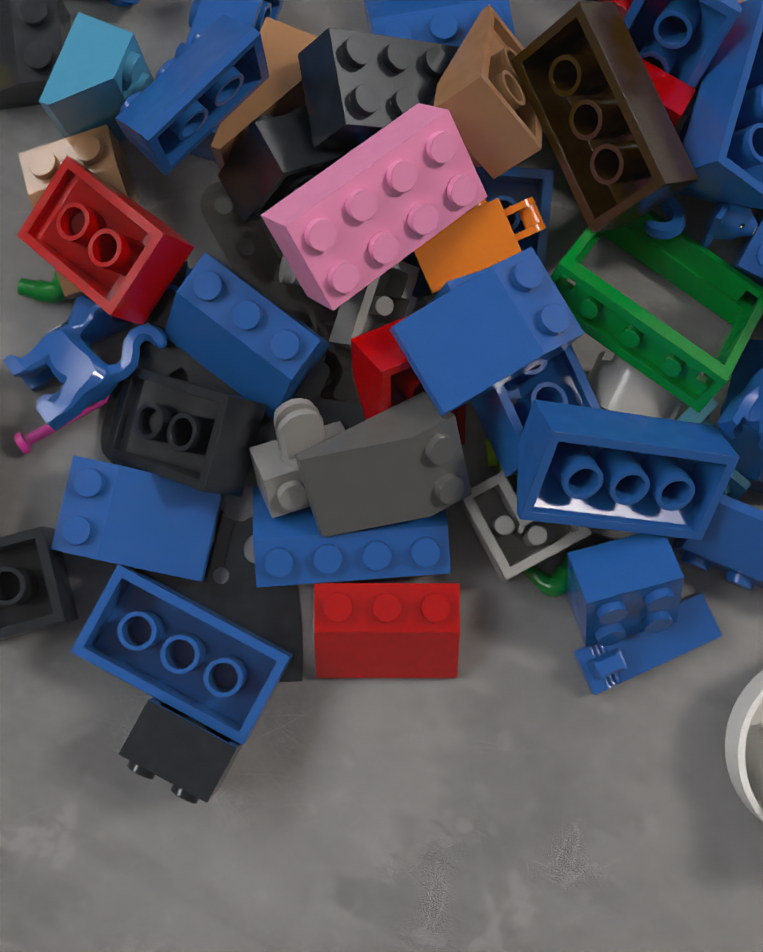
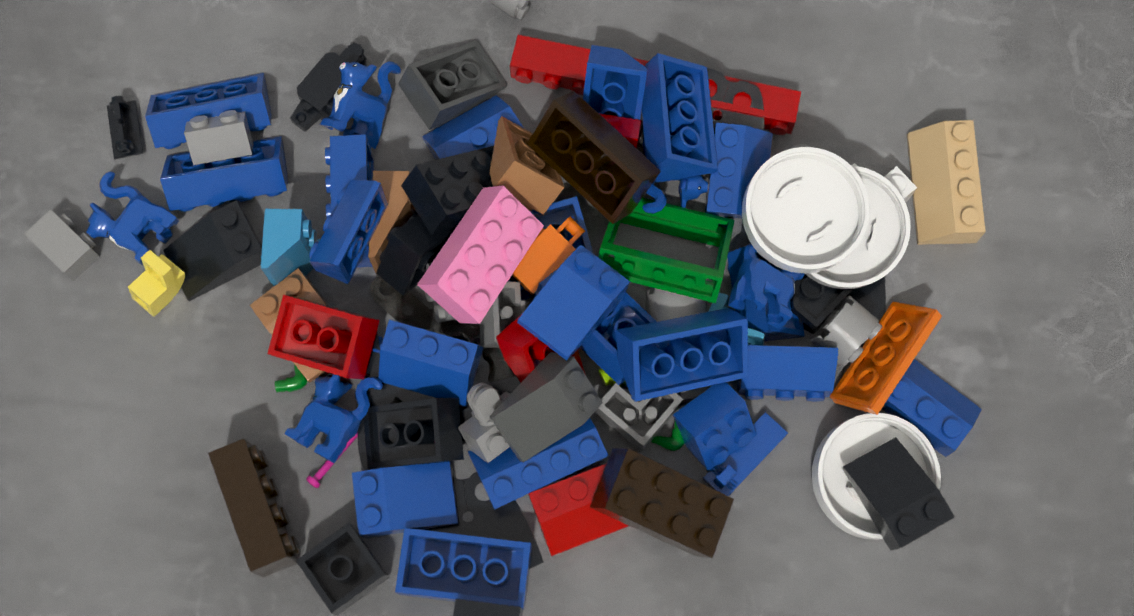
camera: 20 degrees left, 10 degrees down
(500, 672) = (662, 502): none -> dark brown brick

